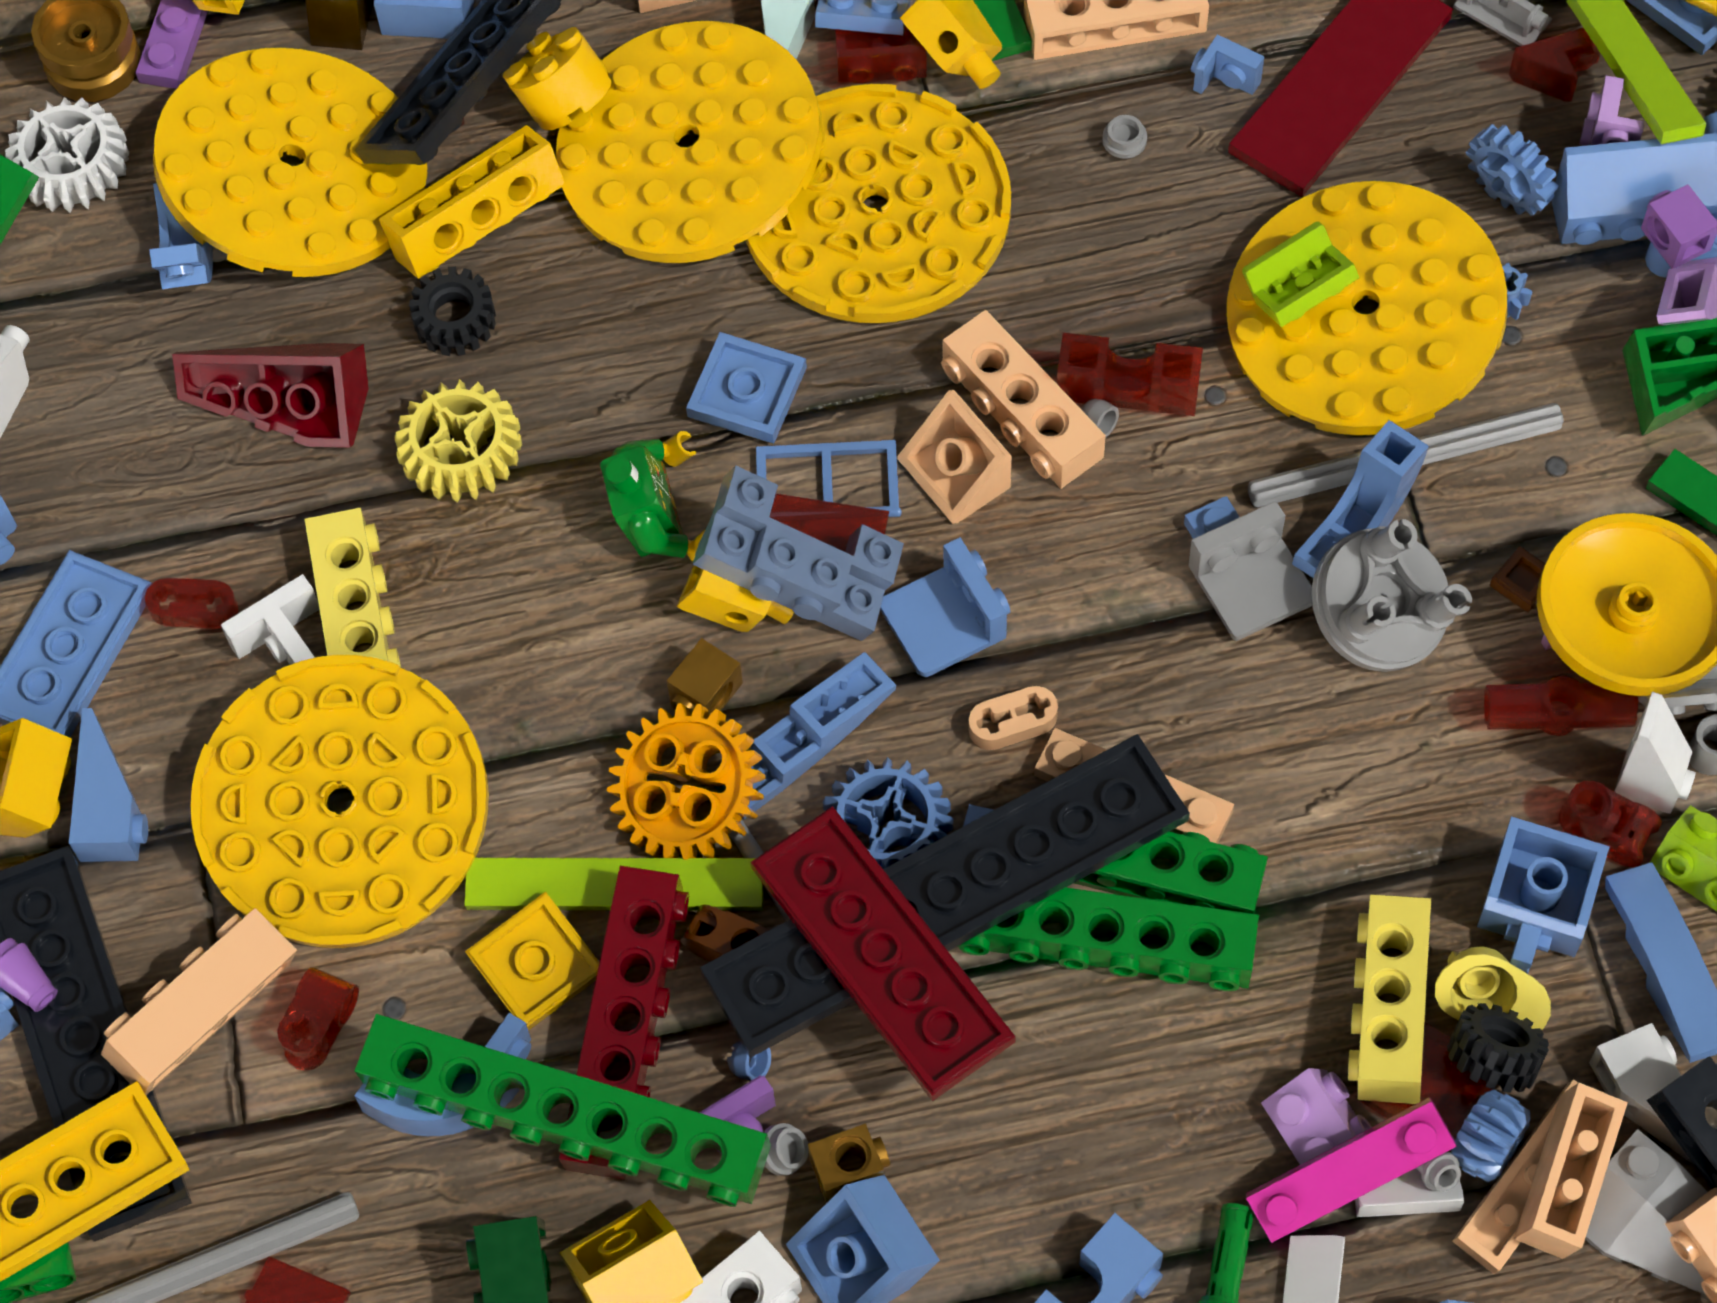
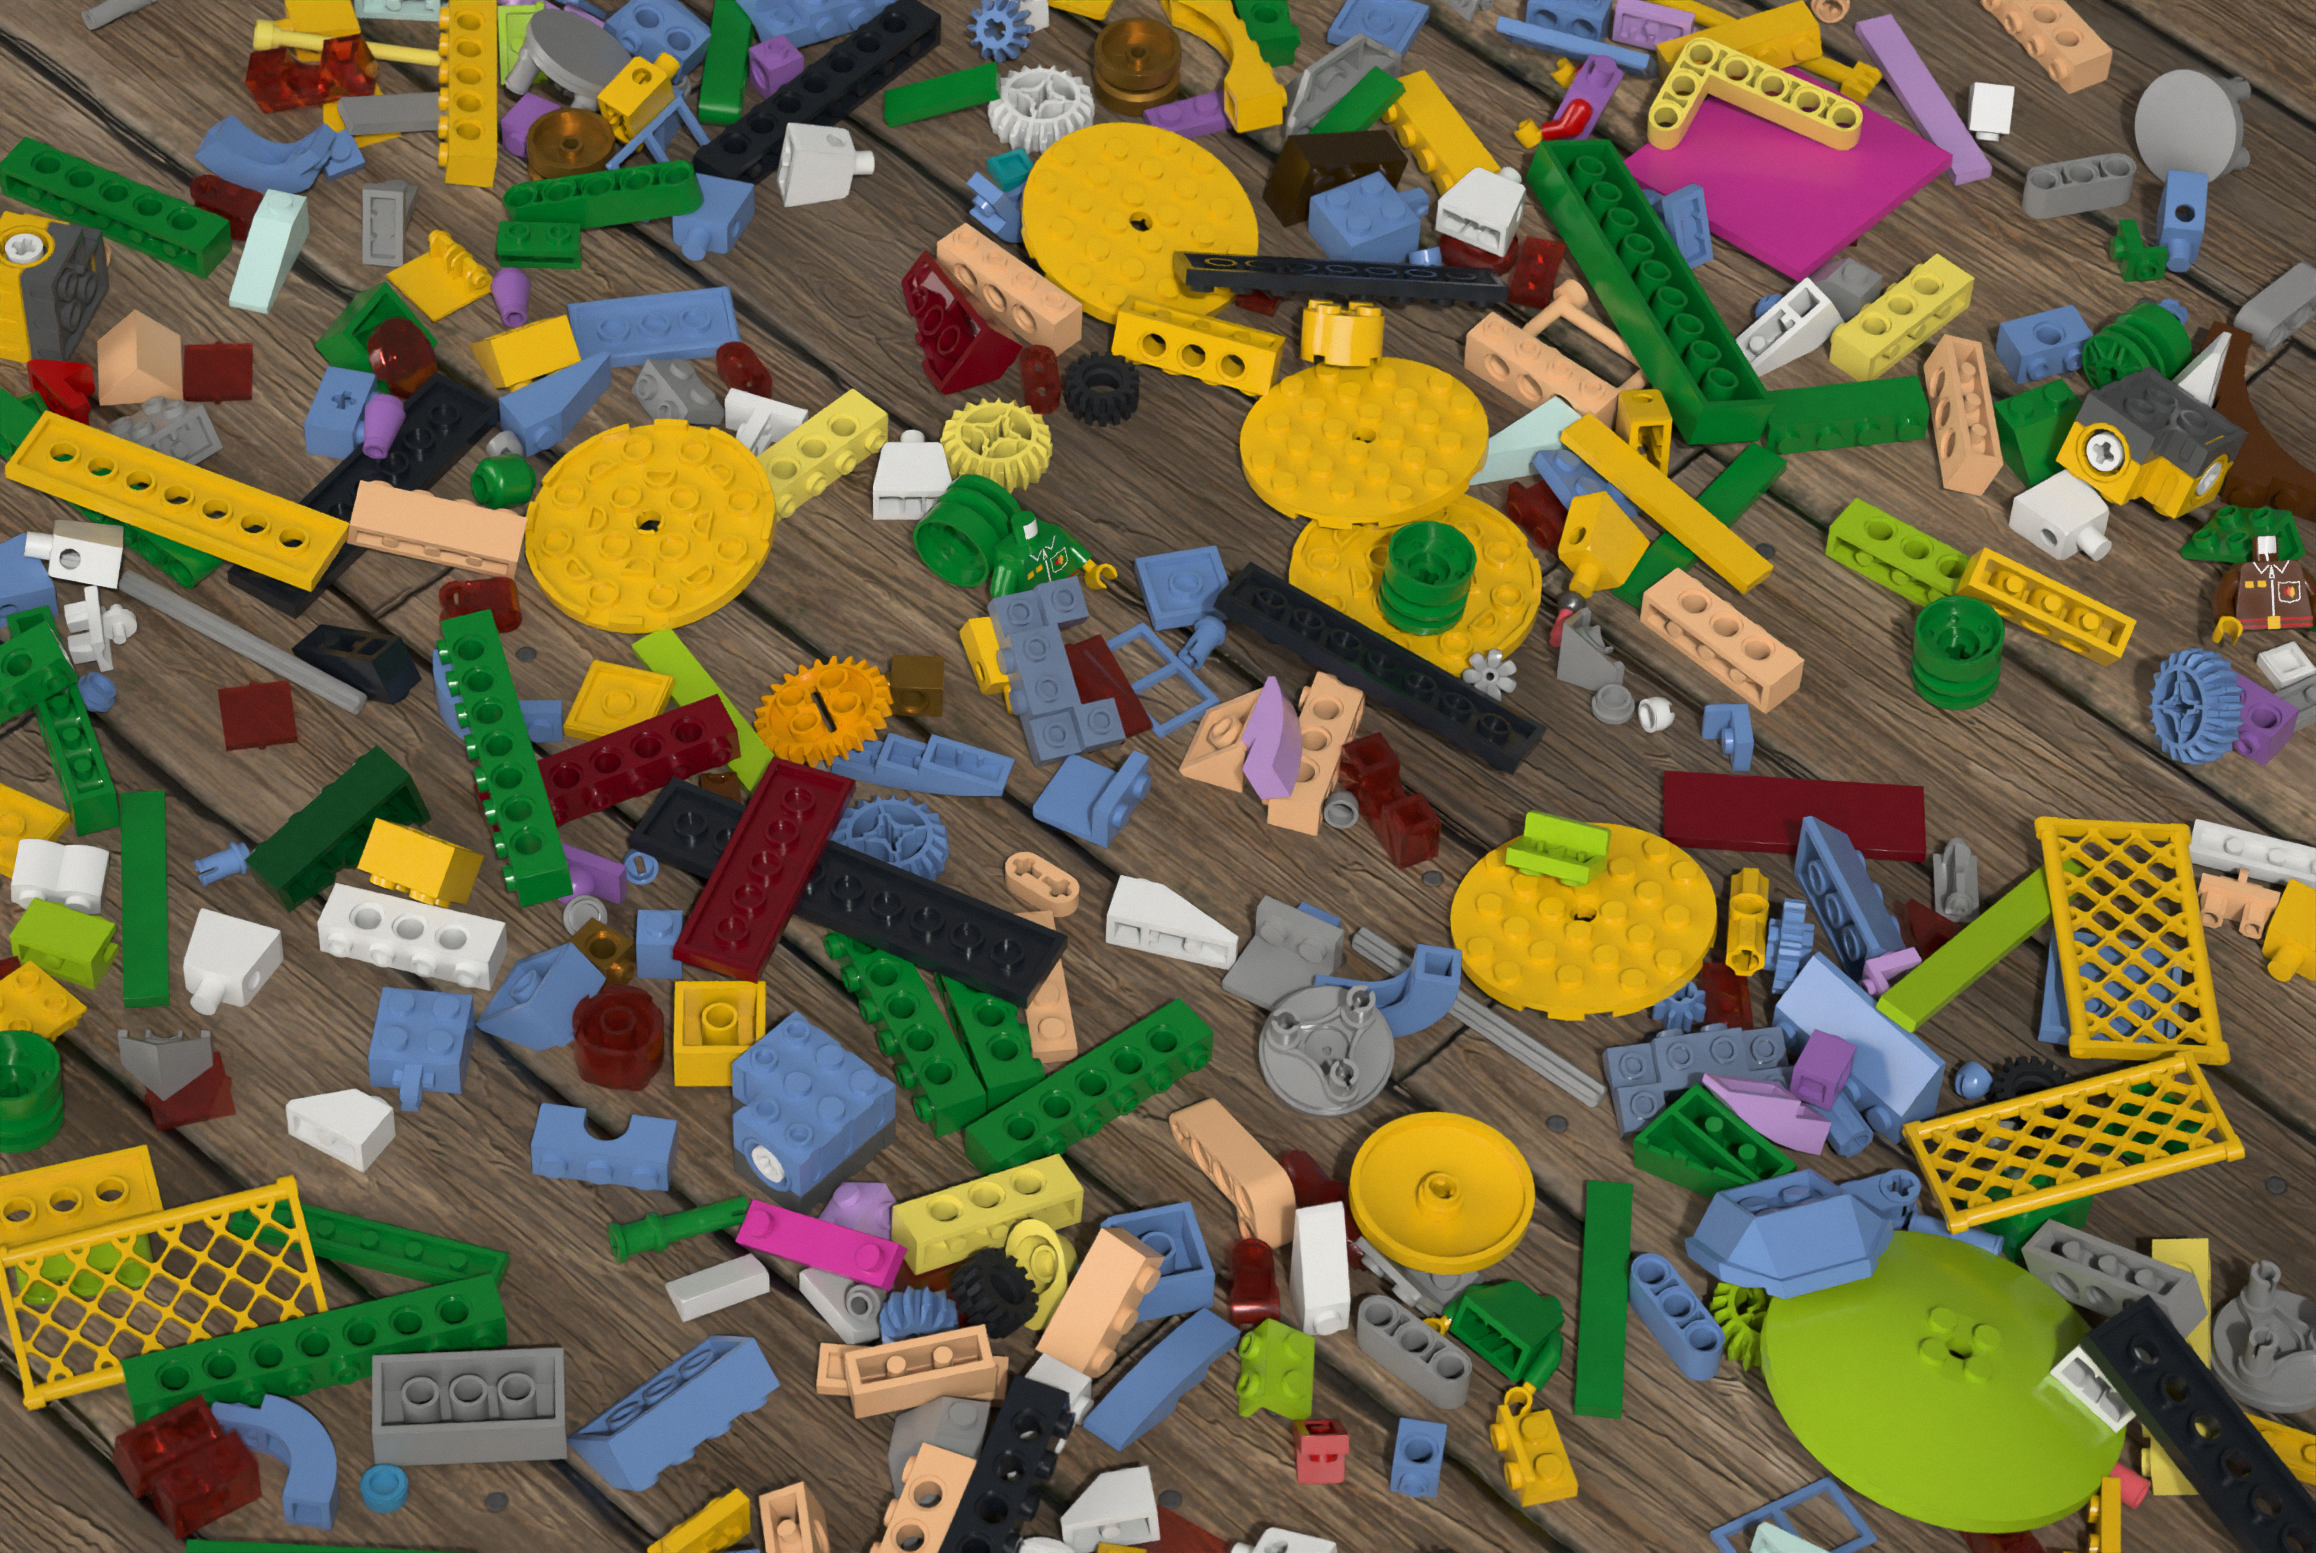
camera: 50 degrees right, 15 degrees down
(116, 224) = (1009, 169): none -> teal tile
(120, 875) = (504, 443): none -> light grey hinge
(169, 901) = (503, 481): none -> green head
(176, 681) = (675, 392): none -> light grey bracket
(277, 312) = (1012, 290): none -> light nougat brick
(301, 1174) = (362, 659): none -> black slope
(399, 350) = (1047, 379): none -> clear red beam
(445, 534) = (909, 478): none -> white torso
(562, 524) = (963, 529): none -> green wheel
(816, 403) = (1208, 634): none -> medium blue pin
(870, 1097) = (655, 943): none -> medium blue brick
(914, 186) = (1426, 578): none -> green wheel
(968, 1177) = (618, 1038): none -> clear red brick
(979, 288) = (1380, 668): none -> black plate
(990, 101) = (1567, 604): none -> piece
(1017, 425) = (1273, 743): none -> lavender slope
(1025, 1110) = (714, 1028): none -> yellow brick
(1030, 209) = (1492, 683): none -> light grey plant
(1061, 124) = (1583, 655): none -> light grey slope
(1136, 642) = (1163, 923): none -> white slope
(1165, 115) = (1655, 714): none -> white hinge
(1186, 1085) = (806, 1114): none -> medium blue piece
(1303, 944) = (1092, 1090): none -> green brick
(1456, 181) = (1747, 922): none -> yellow piece
(1472, 752) = (1239, 1169): none -> light nougat beam
(1473, 96) = (1844, 897): none -> medium blue slope
(1528, 254) = (1726, 996): none -> clear red plate
(1583, 322) = (1675, 1061): none -> sand blue bracket
(1586, 963) = (1102, 1302): none -> light nougat brick

